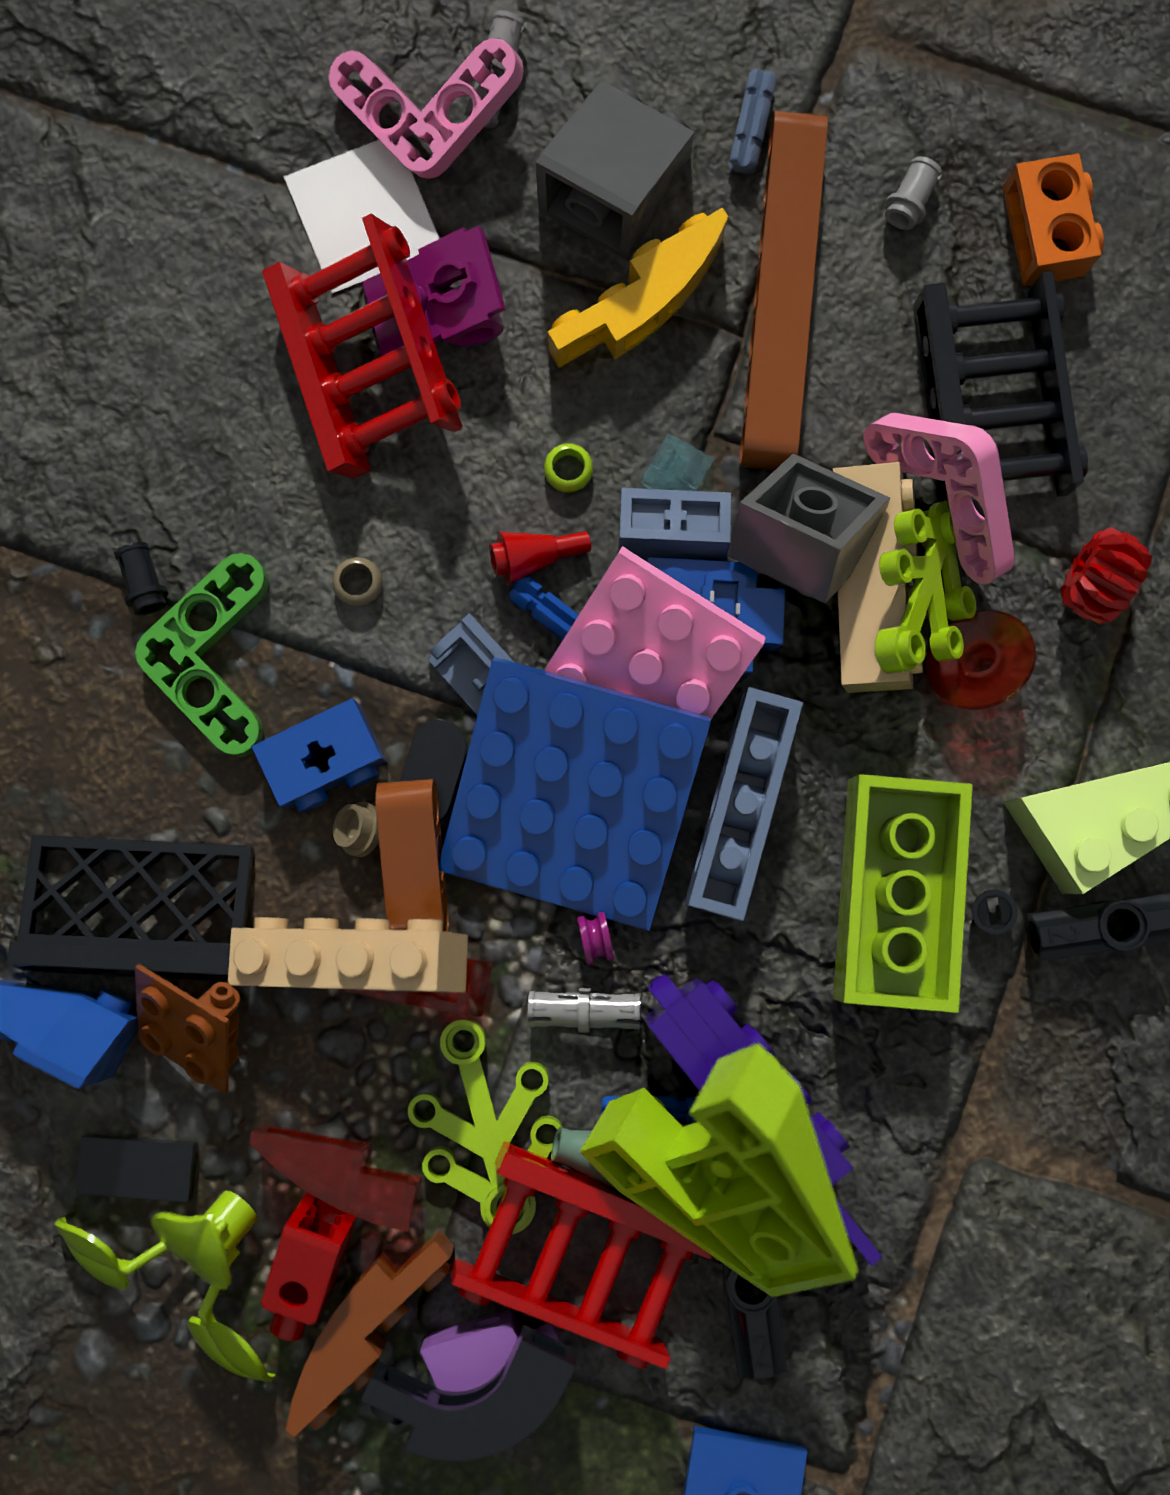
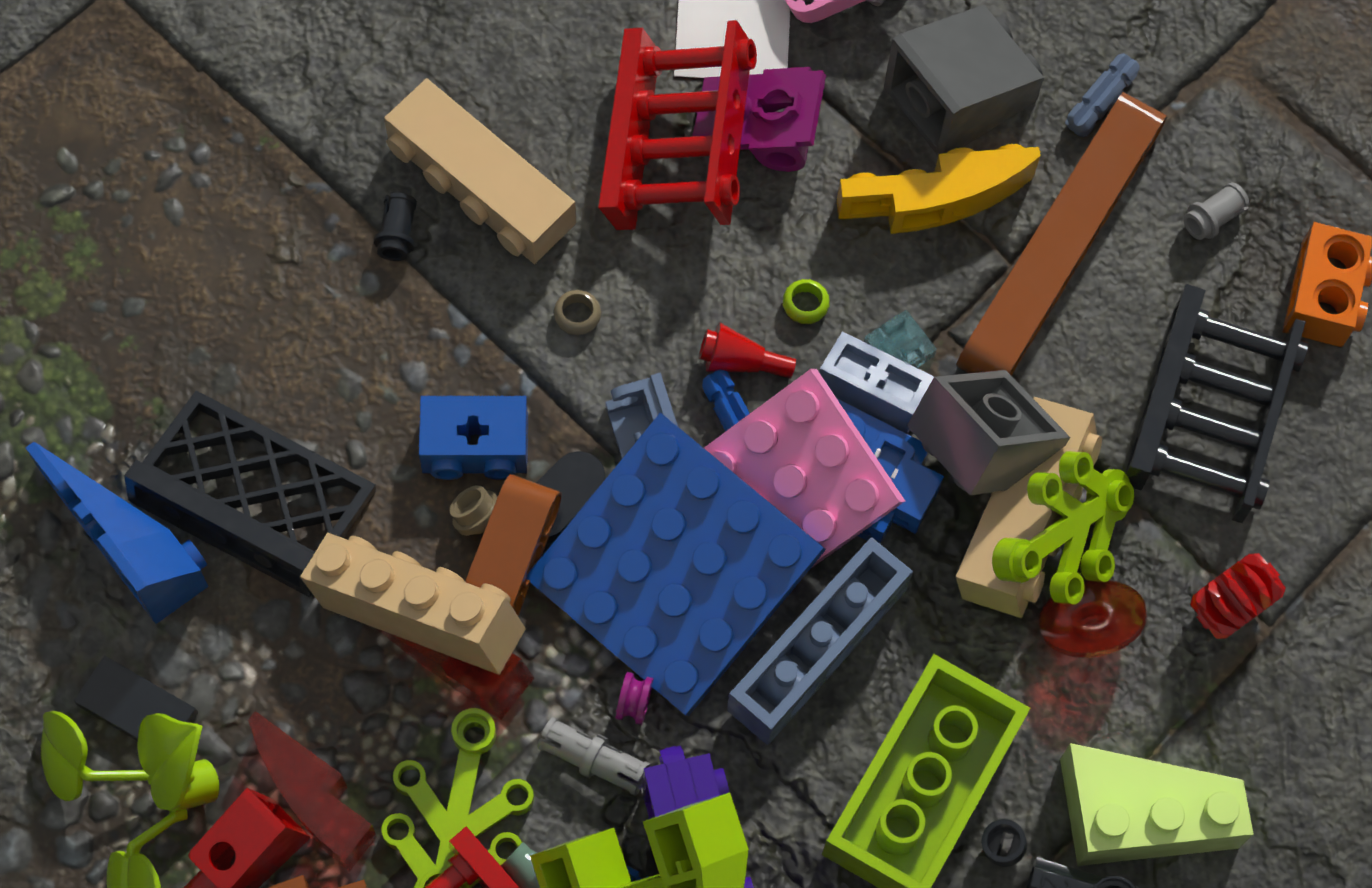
camera: 25 degrees right, 15 degrees down
(188, 1030) = (247, 599): dark orange hinge -> none
(192, 486) = (479, 172): none -> tan brick
(192, 644) = (409, 299): bright green beam -> none
(981, 542) = (1145, 461): bright pink beam -> none

